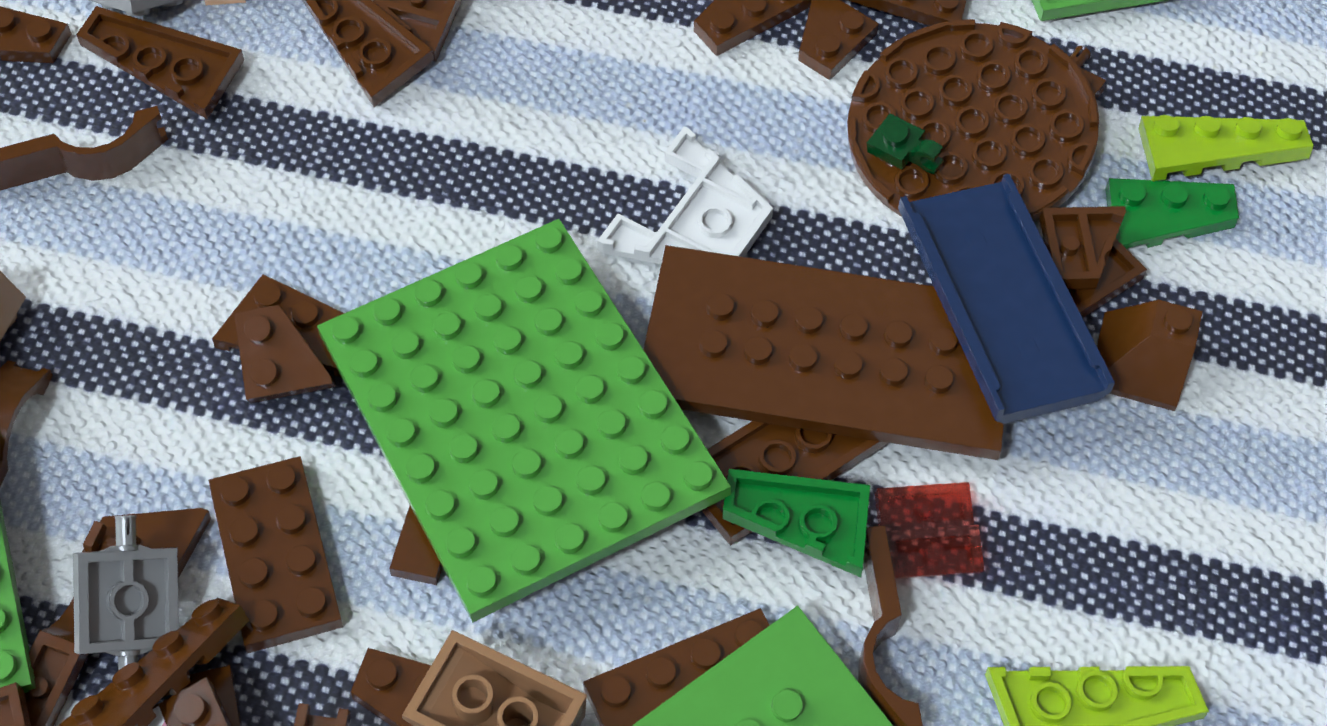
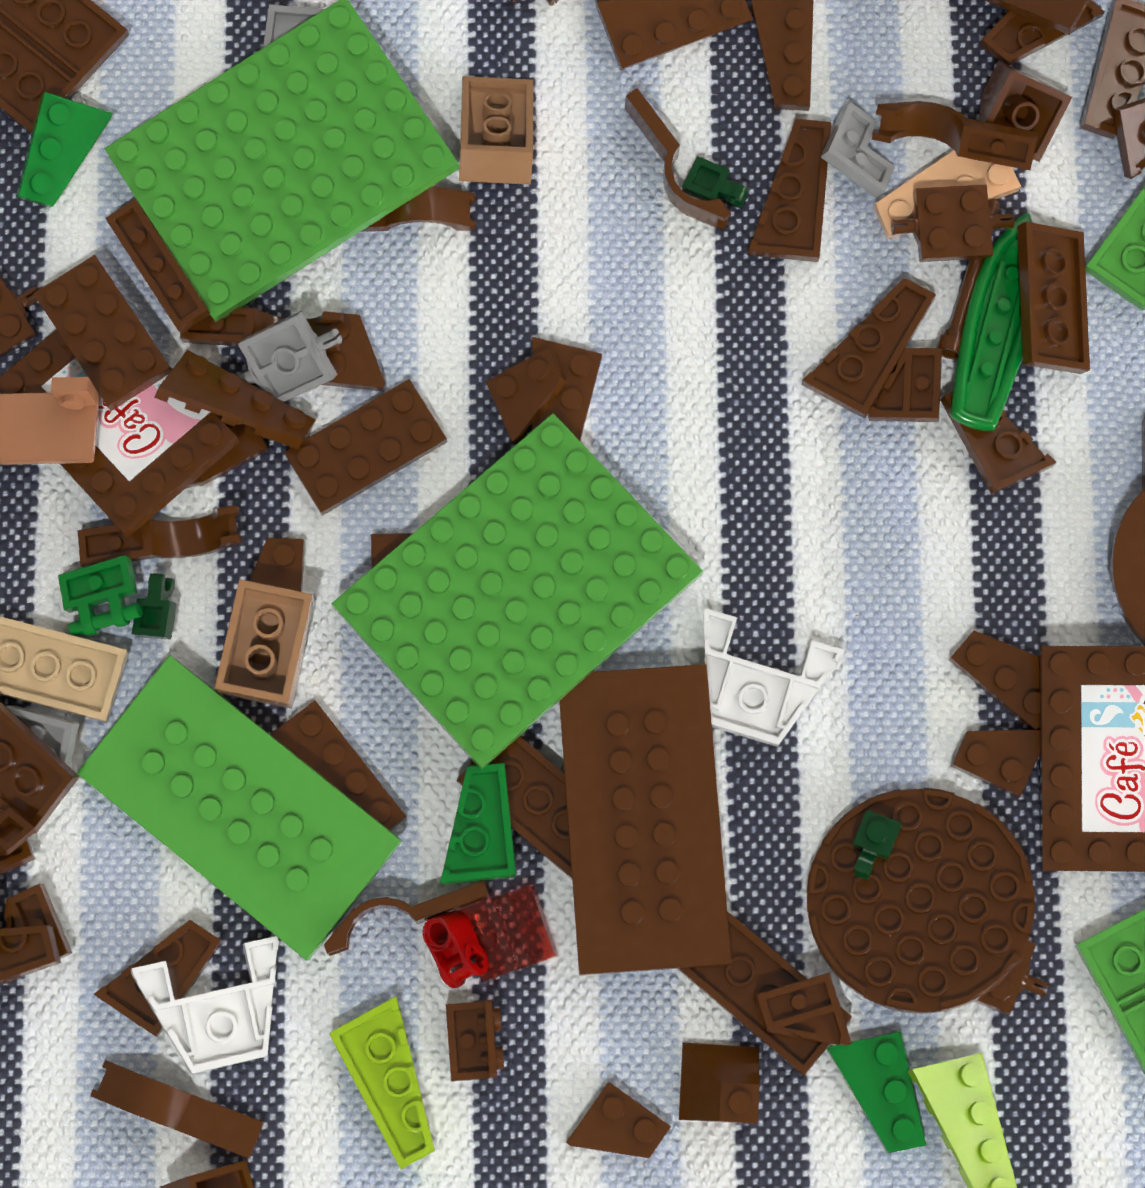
camera: 75 degrees right, 20 degrees up
(109, 123) = (710, 181): none -> dark green plate
(950, 583) = (454, 945): none -> red piece
(1006, 301) = (722, 950): dark blue ladder -> none
(1057, 591) = (473, 1040): none -> reddish brown bracket
(1176, 468) = (619, 1126): none -> reddish brown wing

